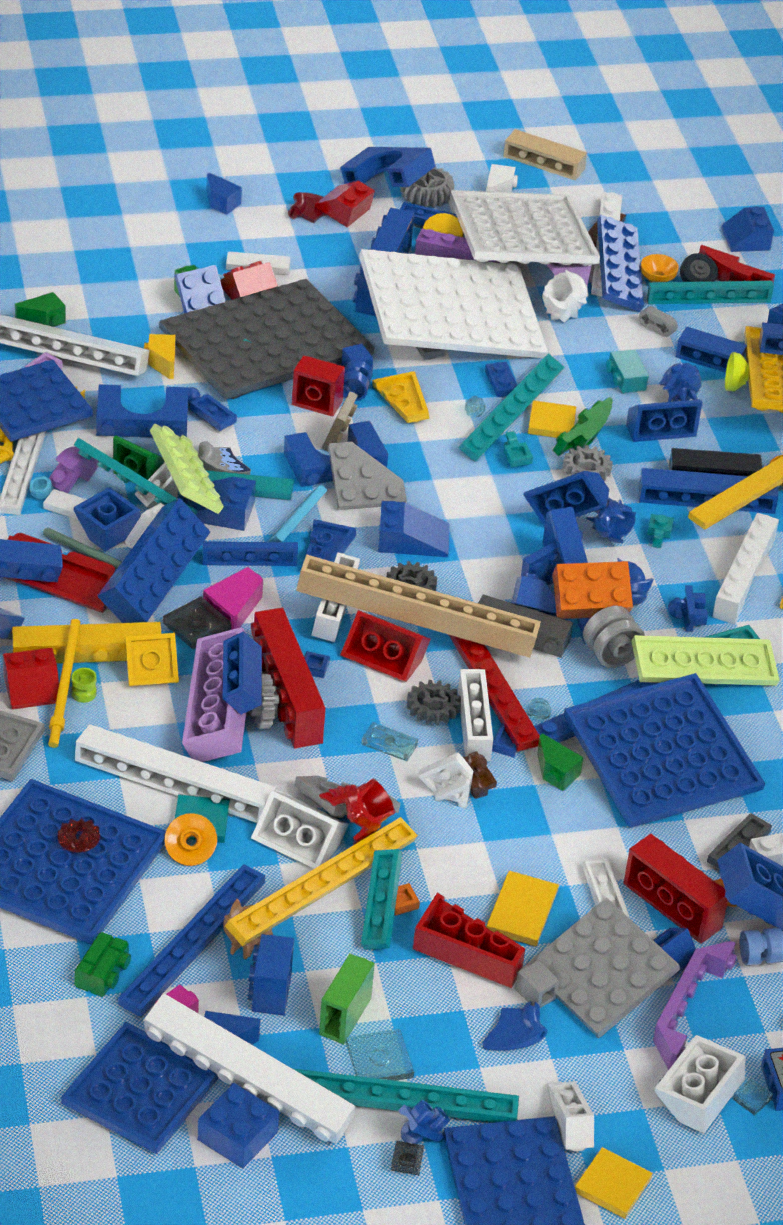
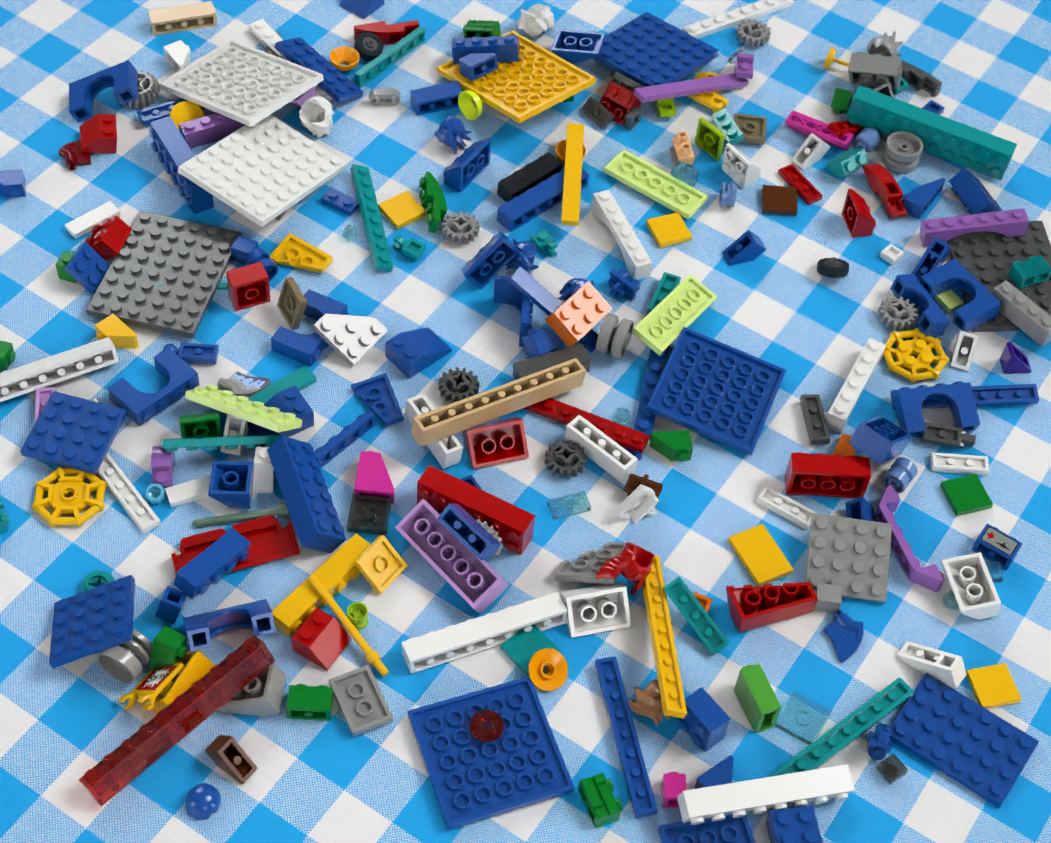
camera: 45 degrees left, 10 degrees up
(298, 514) = (341, 392): medium azure tile -> none
(627, 371) = (408, 144): teal brick -> none

